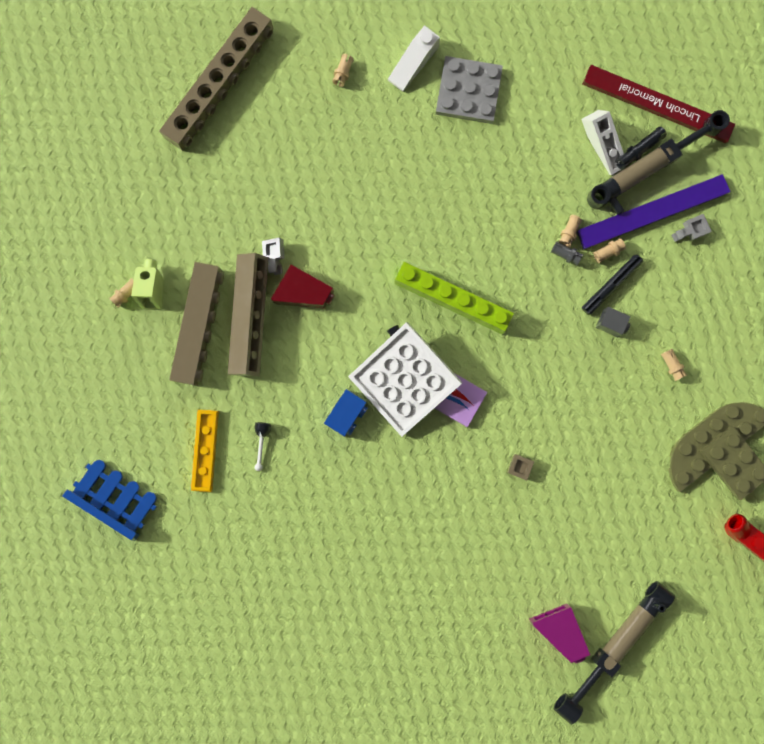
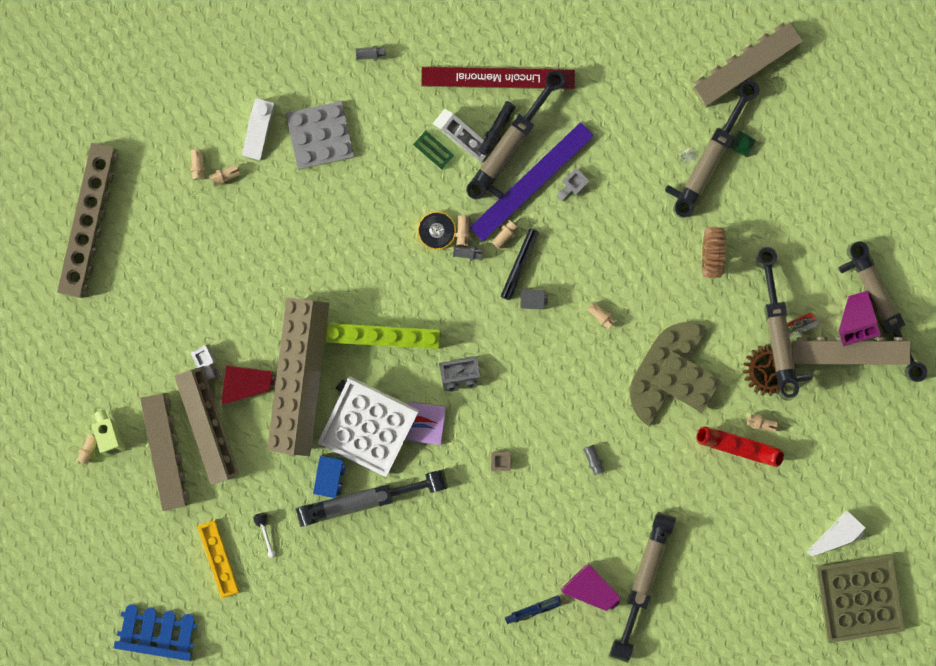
camera: 20 degrees left, 5 degrees up
(357, 302) = (298, 376): none -> dark tan brick
(364, 89) = (224, 175): none -> tan pin
(372, 450) = (365, 499): none -> piece
(496, 629) = (534, 609): none -> dark blue piece
(514, 366) = (460, 374): none -> dark grey bracket
(544, 221) = (436, 230): none -> black tile
(547, 33) = (371, 53): none -> dark grey pin
(564, 149) = (421, 139): none -> clear green tile
(613, 507) = (594, 460): none -> dark grey pin

